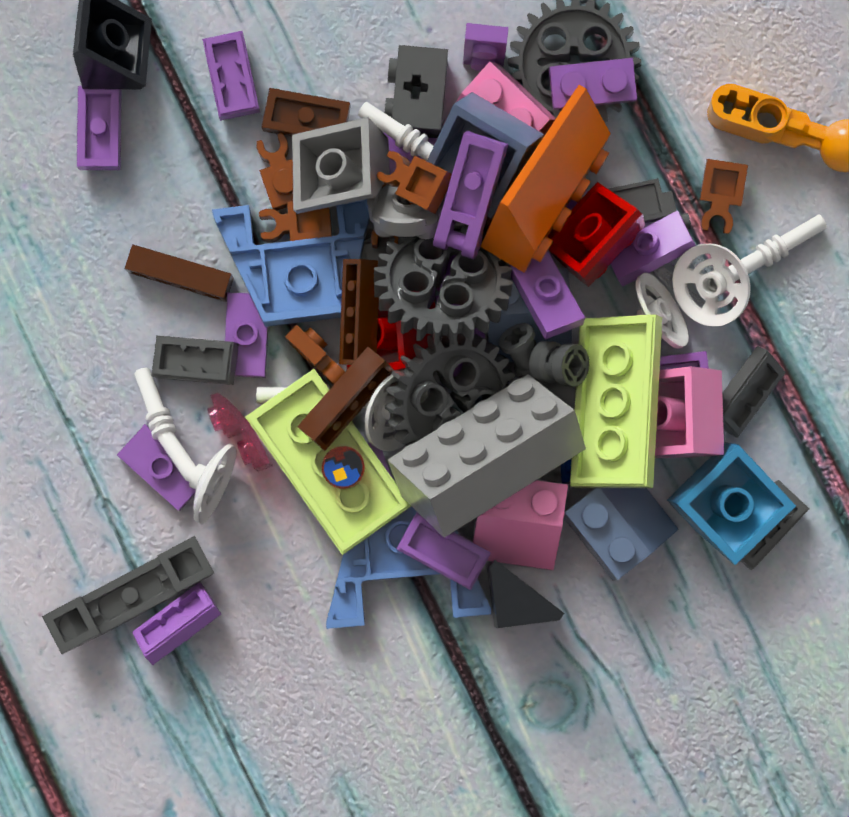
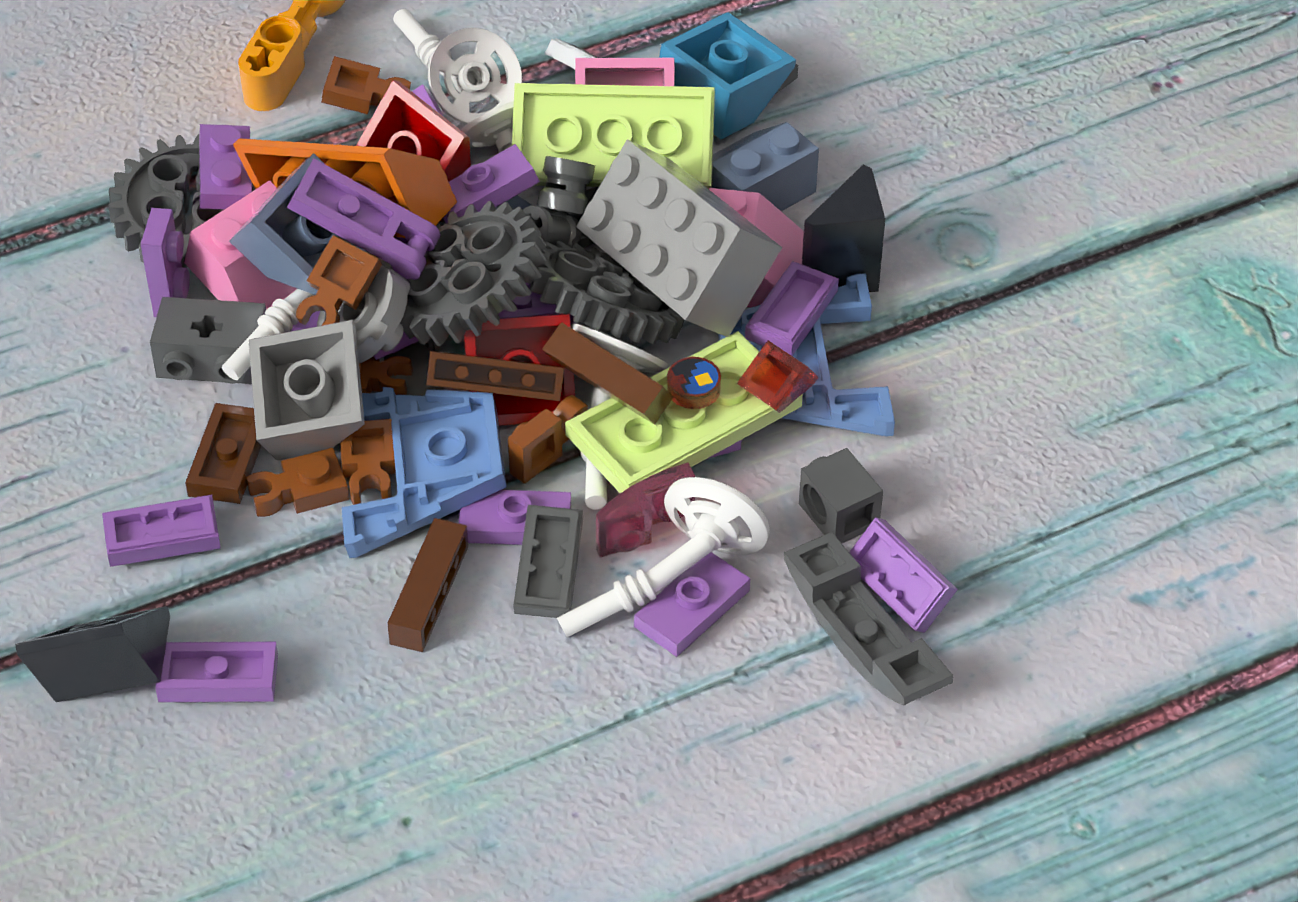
camera: 90 degrees left, 35 degrees down
(254, 580) = (840, 495): none -> dark grey brick
(350, 535) = (776, 377): none -> clear red slope

